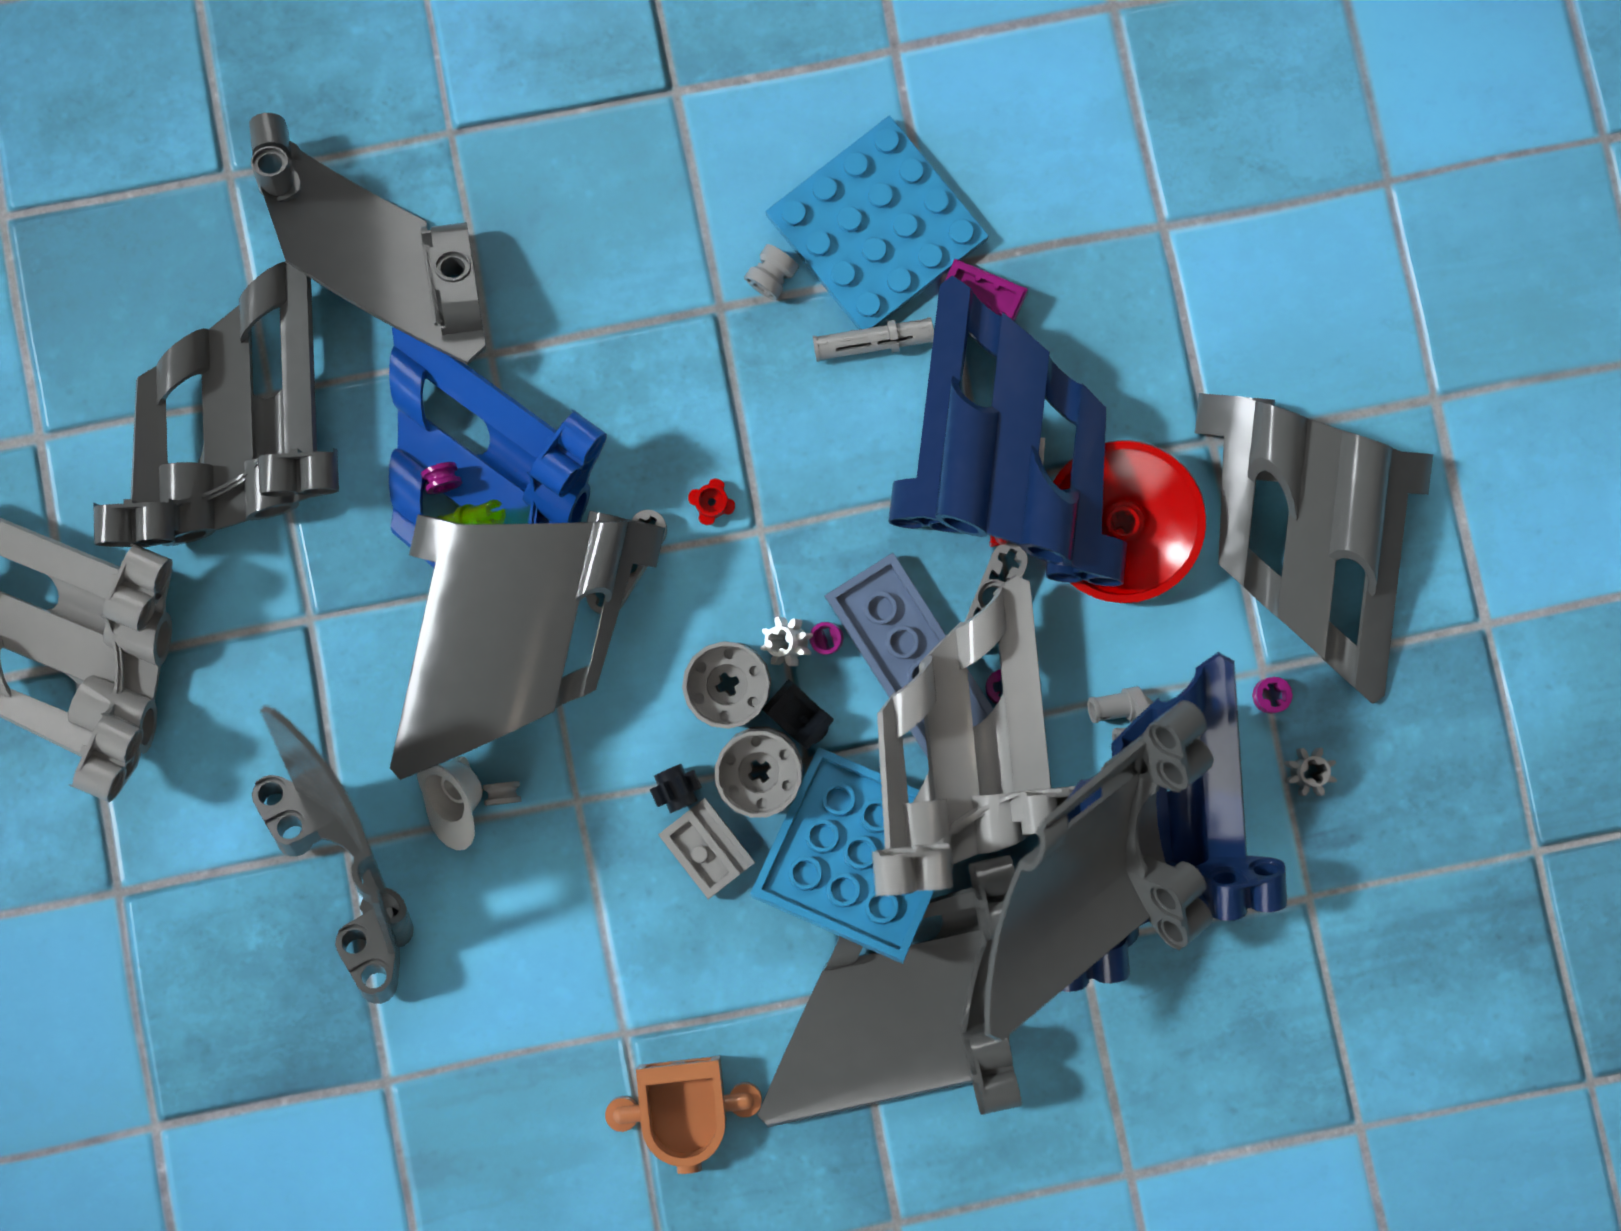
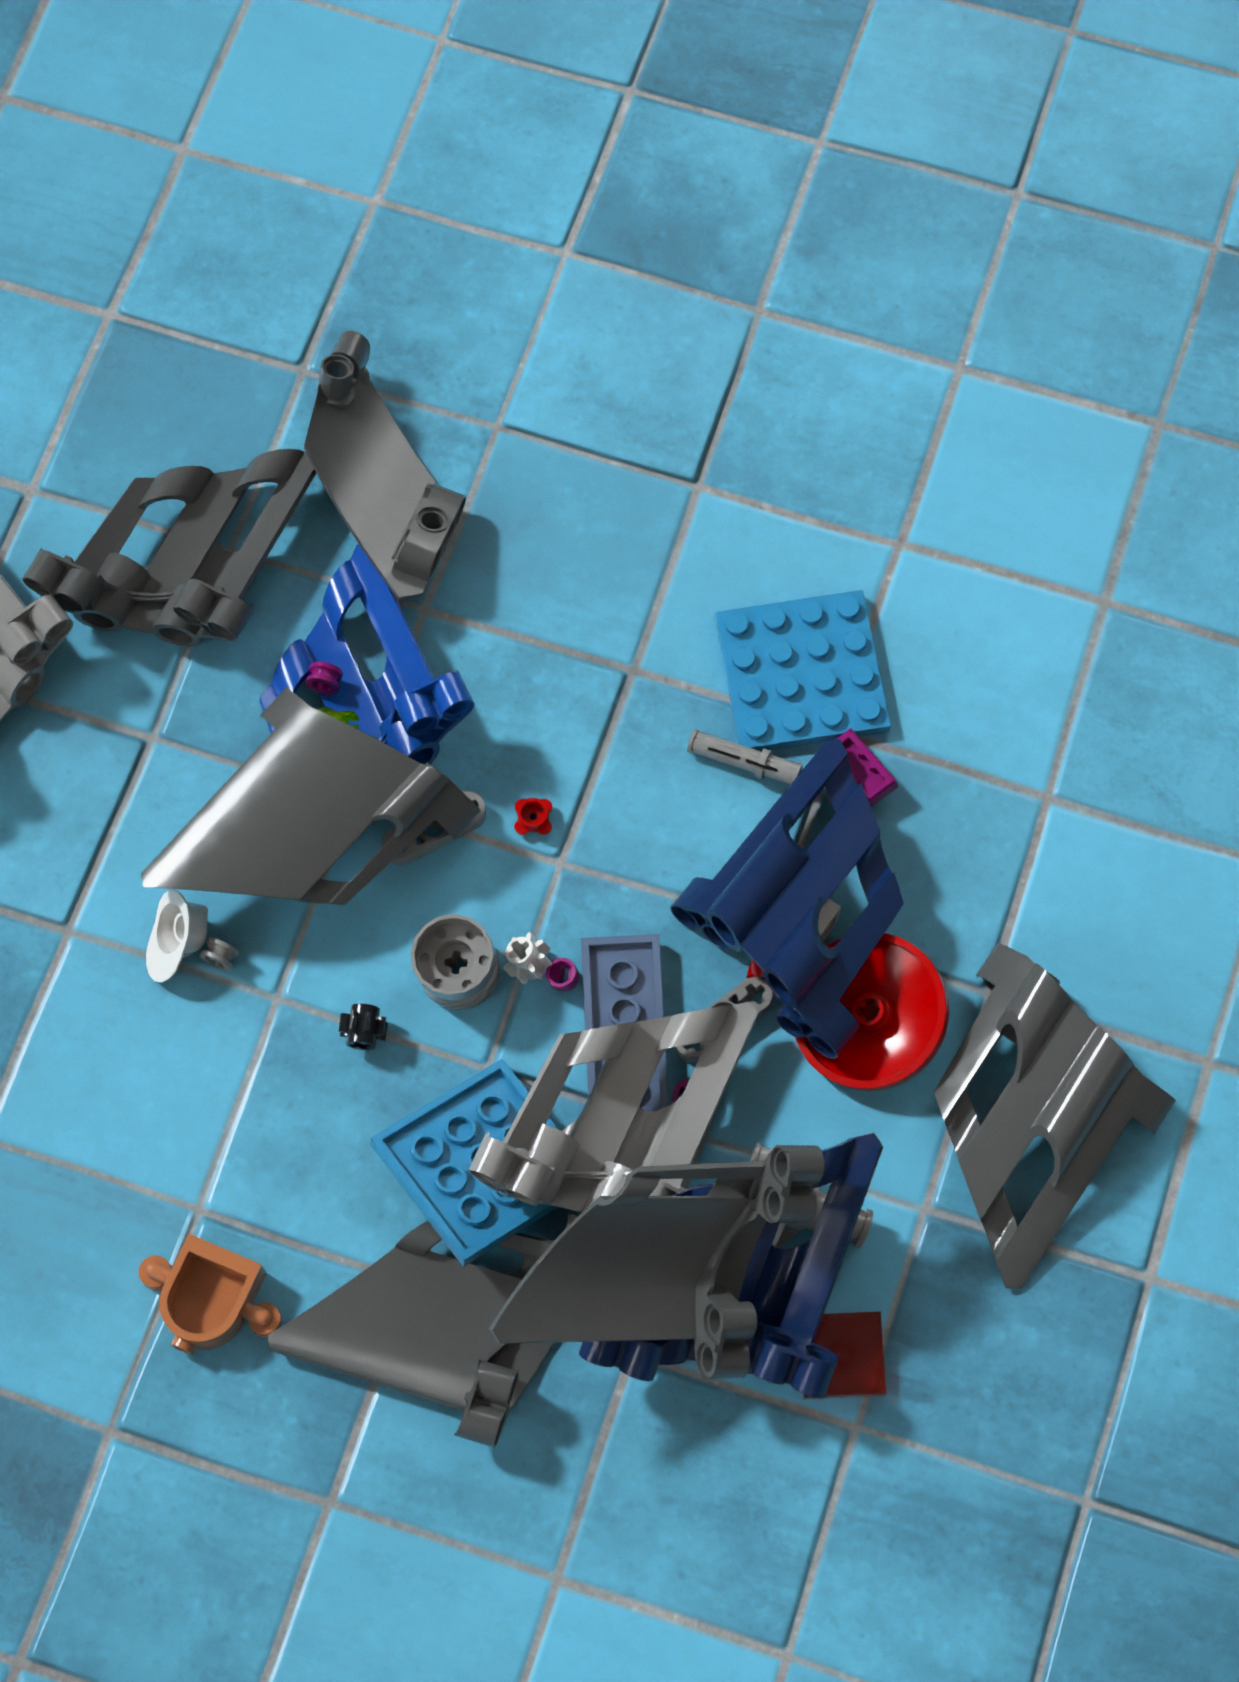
camera: 35 degrees right, 15 degrees down
(325, 812) = (61, 884): dark grey panel -> none
(706, 848) = (359, 1091): light grey plate -> none
(752, 794) = (421, 1035): light grey wheel -> none
(769, 275) = (688, 662): light grey wheel -> none
(798, 715) = (500, 1023): black bracket -> none
(1277, 833) = (860, 1352): none -> clear red plate
(1280, 685) = (908, 1233): magenta bush -> none
(1319, 778) = (925, 1307): light grey gear -> none

